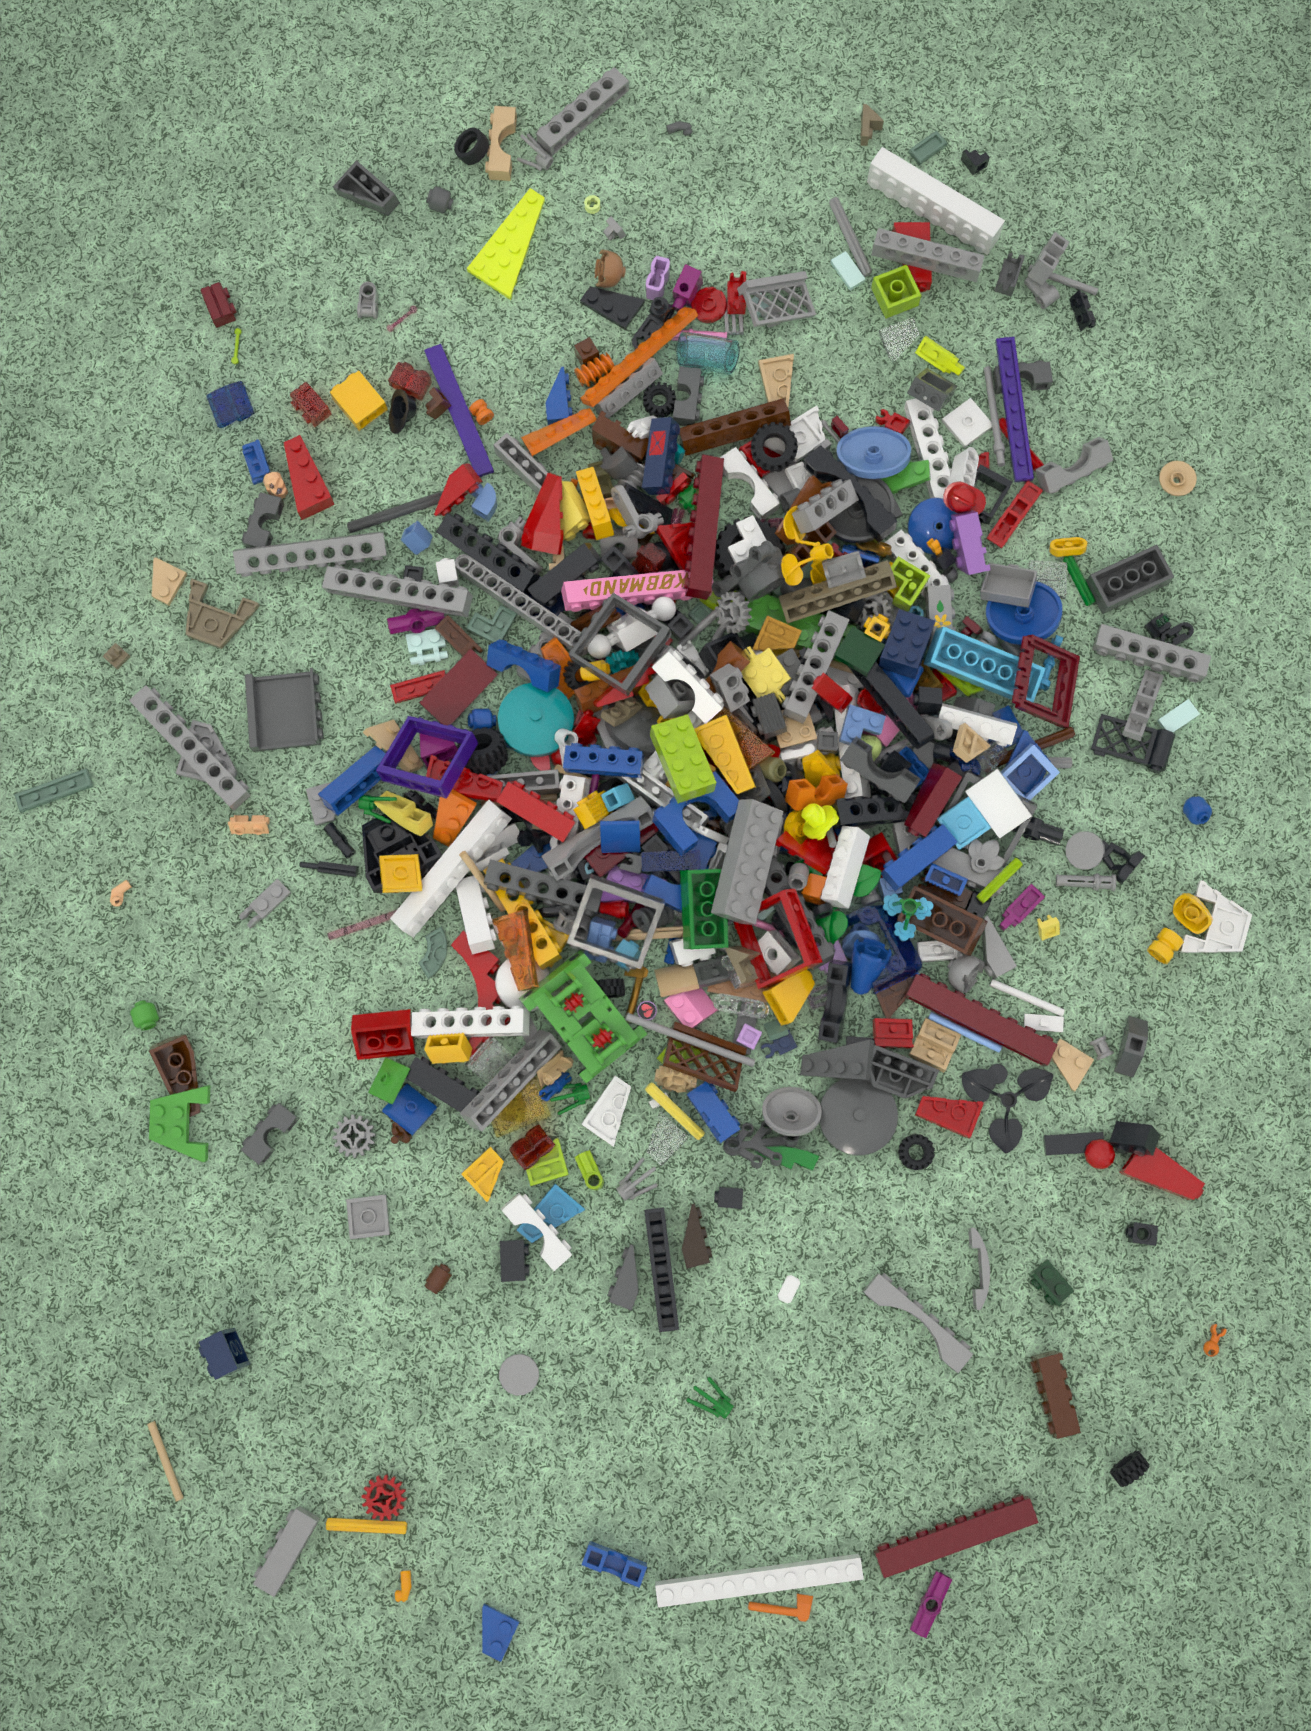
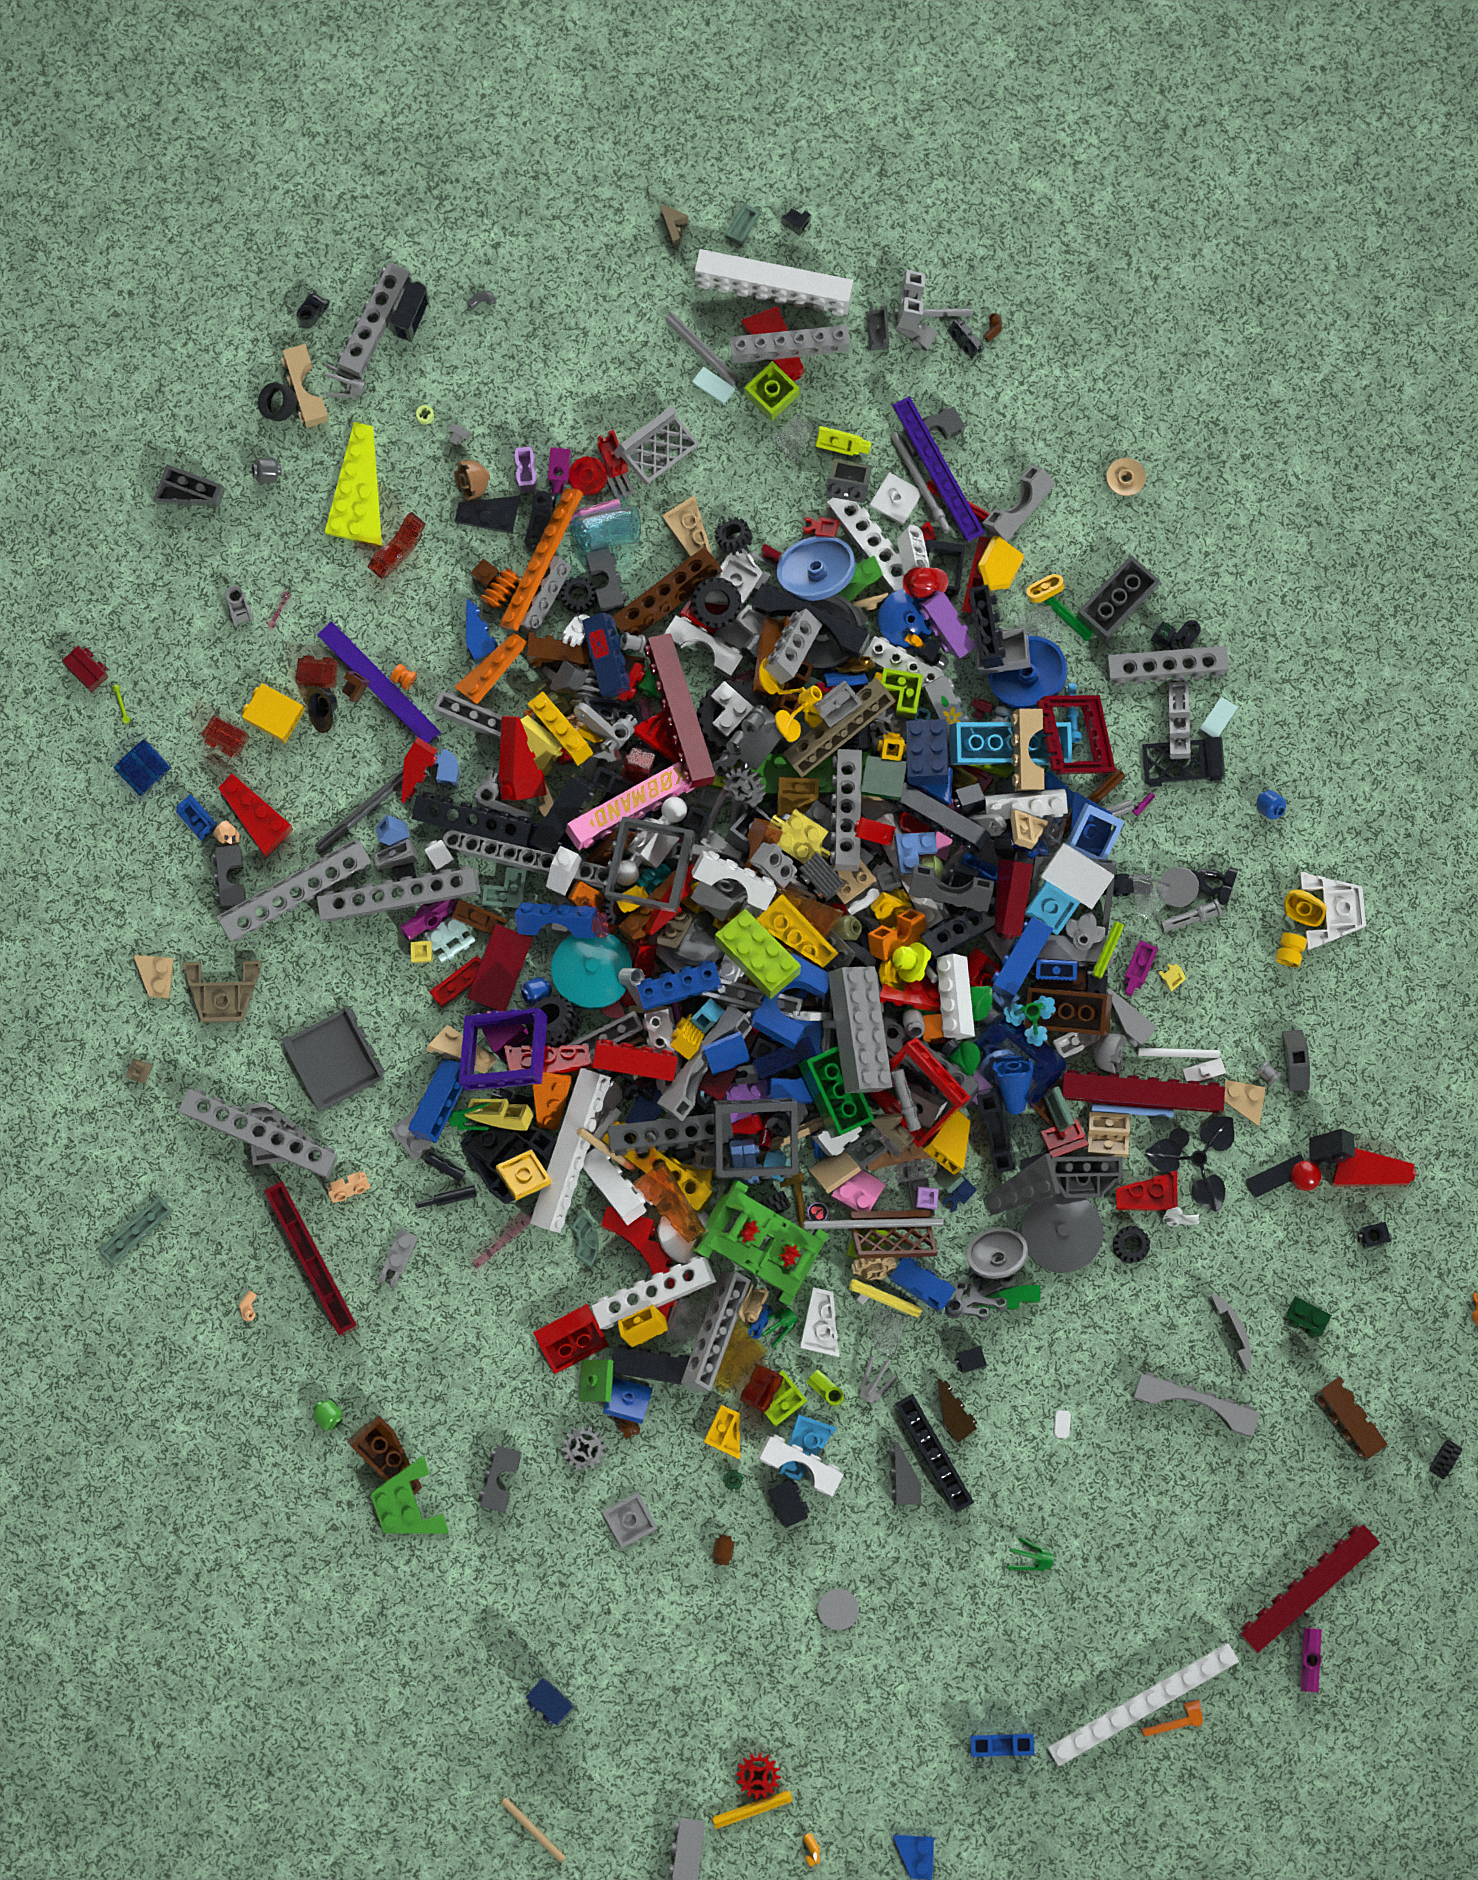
camera: 25 degrees left, 0 degrees up
(189, 874) = (311, 1259): none -> dark red brick
(397, 648) = (421, 952): none -> light yellow tile
(413, 558) = (396, 855): none -> light grey slope
(474, 1223) = (738, 1480): none -> clear green plate
(528, 302) = (400, 546): none -> clear red arch
(535, 82) = (313, 306): none -> black piece
(544, 621) = (563, 870): none -> white slope
(557, 683) = (600, 925): none -> clear pink tile
(614, 112) = (410, 311): none -> black window
(688, 454) = (632, 642): none -> light grey bush
(762, 950) = (905, 1099): none -> light grey pin
(813, 399) = (736, 544): none -> black tyre
(898, 1004) = (1058, 1109): none -> sand green tile
(909, 499) = (870, 602): none -> tan dish
(966, 1143) = (1175, 1217): none -> white plate
(989, 698) = (1027, 774): none -> tan arch
(1003, 556) = (986, 626): none -> black brick
(1036, 510) = (999, 564): none -> yellow tile
(1055, 847) = (1148, 895): none -> clear wing
(1081, 766) = (1143, 804): none -> magenta pin
(1112, 311) = (995, 327): none -> reddish brown arm

